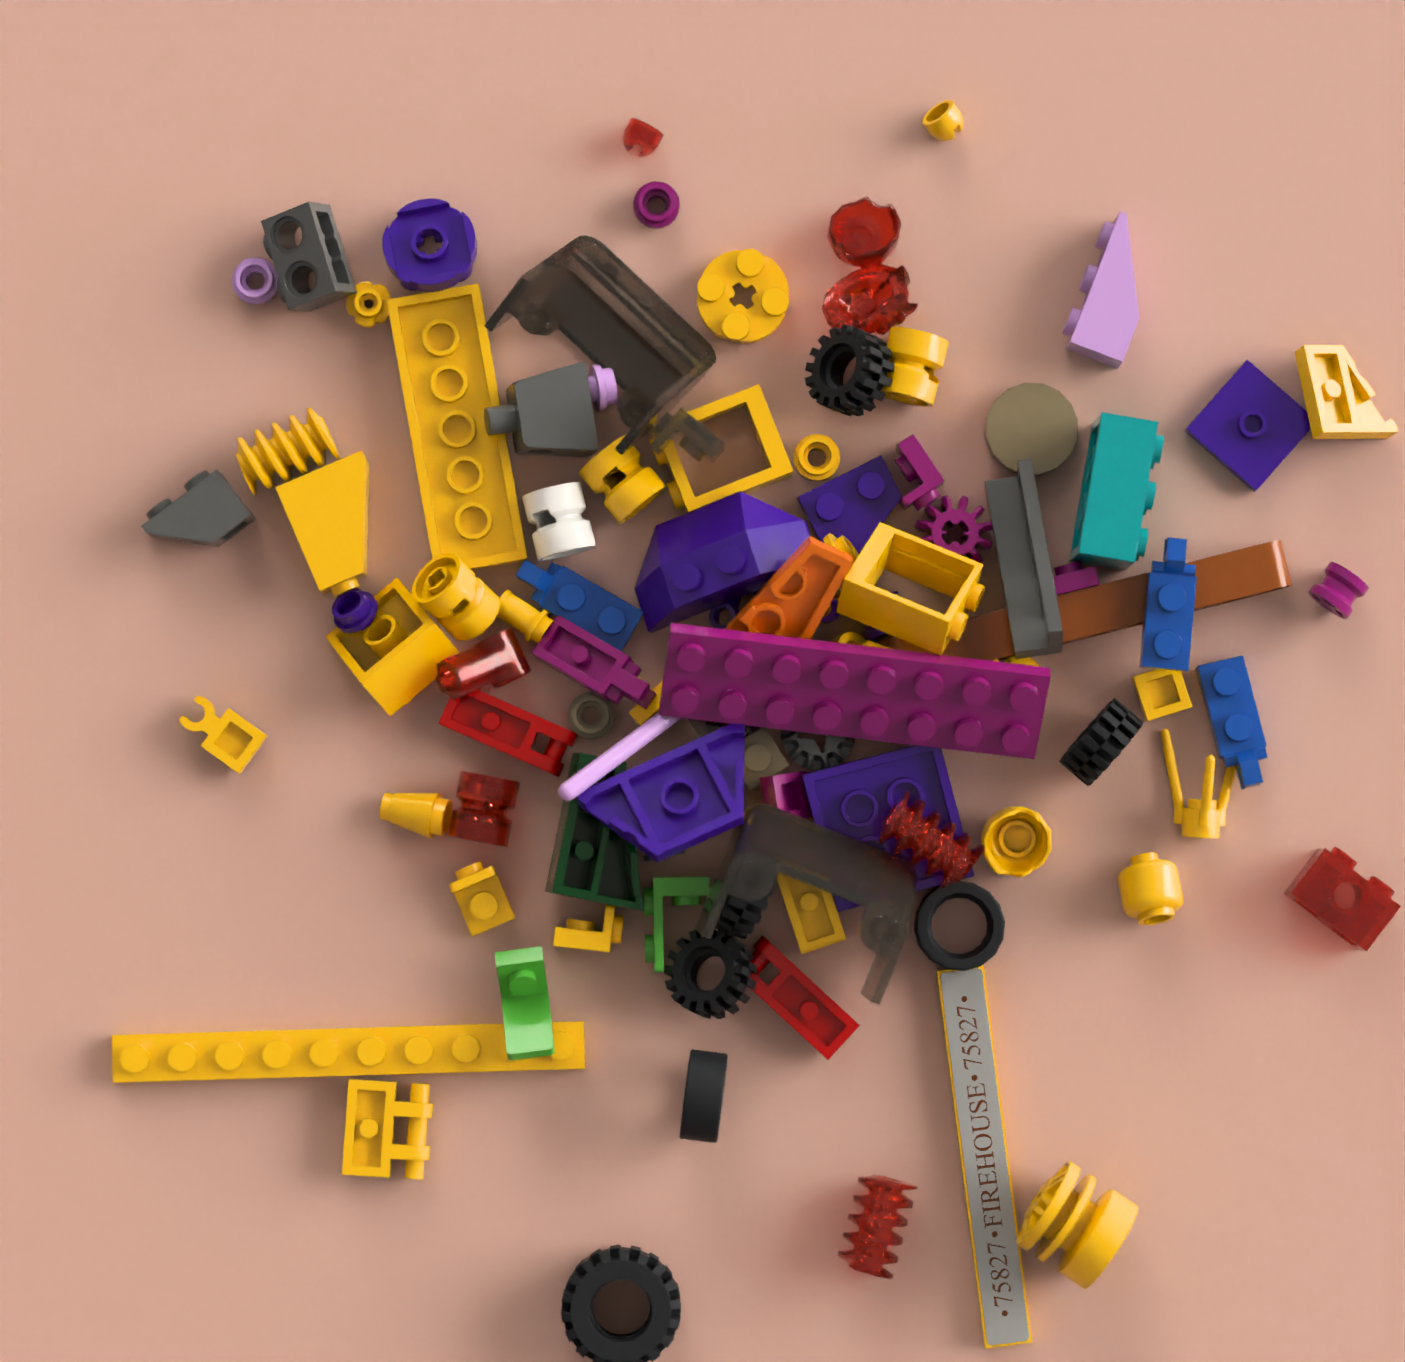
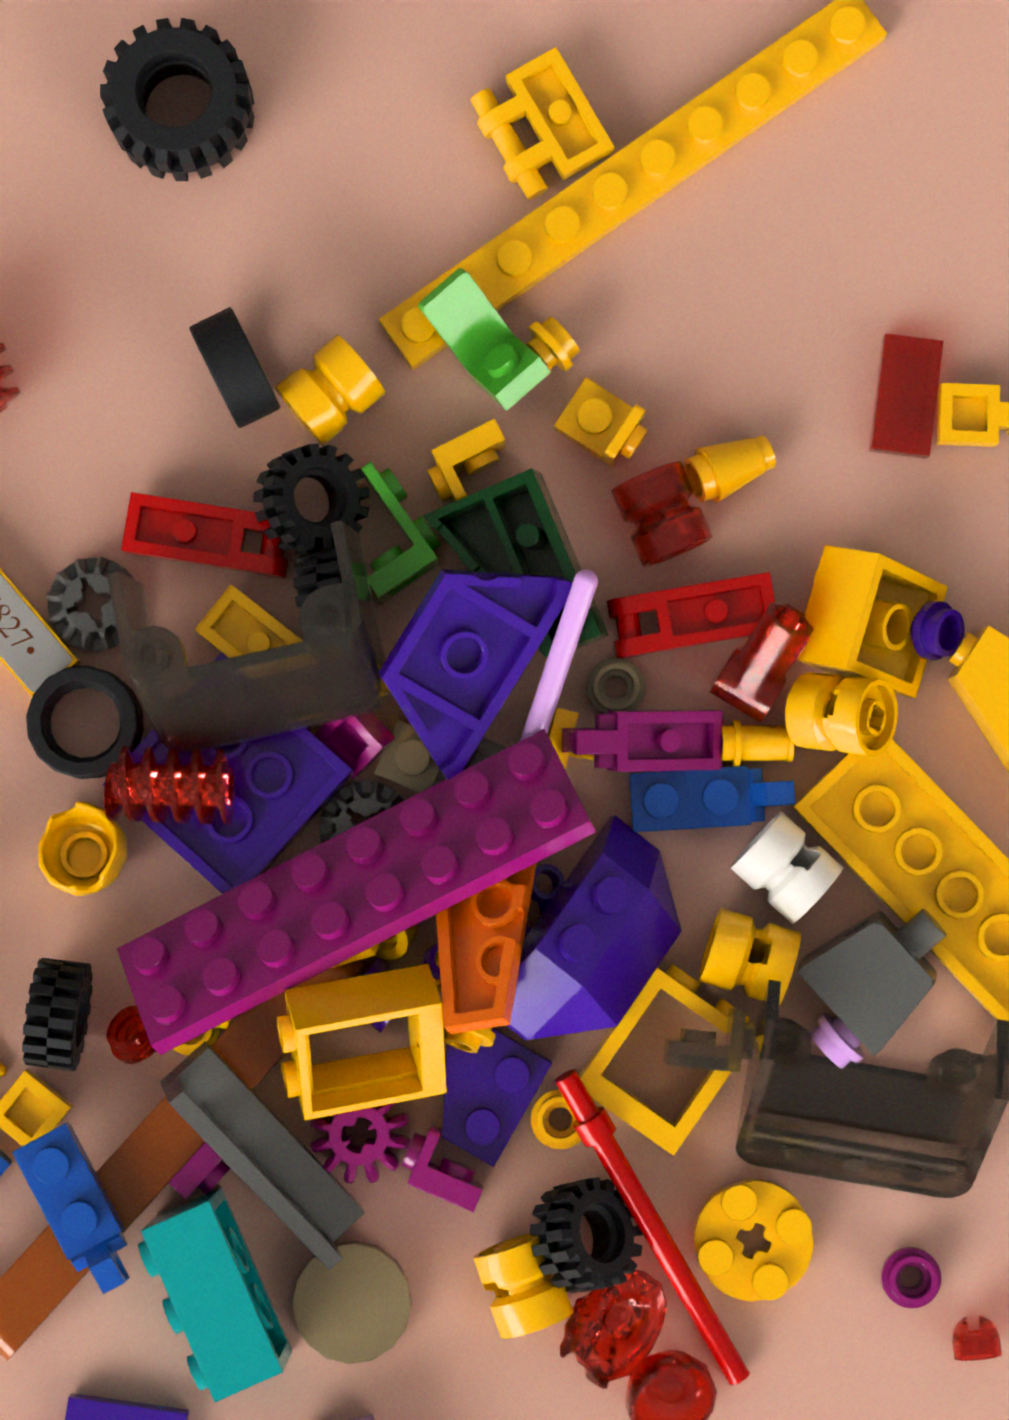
camera: 150 degrees right, 0 degrees up
(266, 782) = (906, 396): none -> clear red tile
(480, 972) = (552, 344): none -> yellow plate
(649, 1040) = (334, 386): none -> yellow wheel
(798, 432) = (597, 1130): none -> red bar
(914, 1022) = (68, 590): none -> dark grey gear
(1063, 697) = (128, 1037): none -> clear red plate

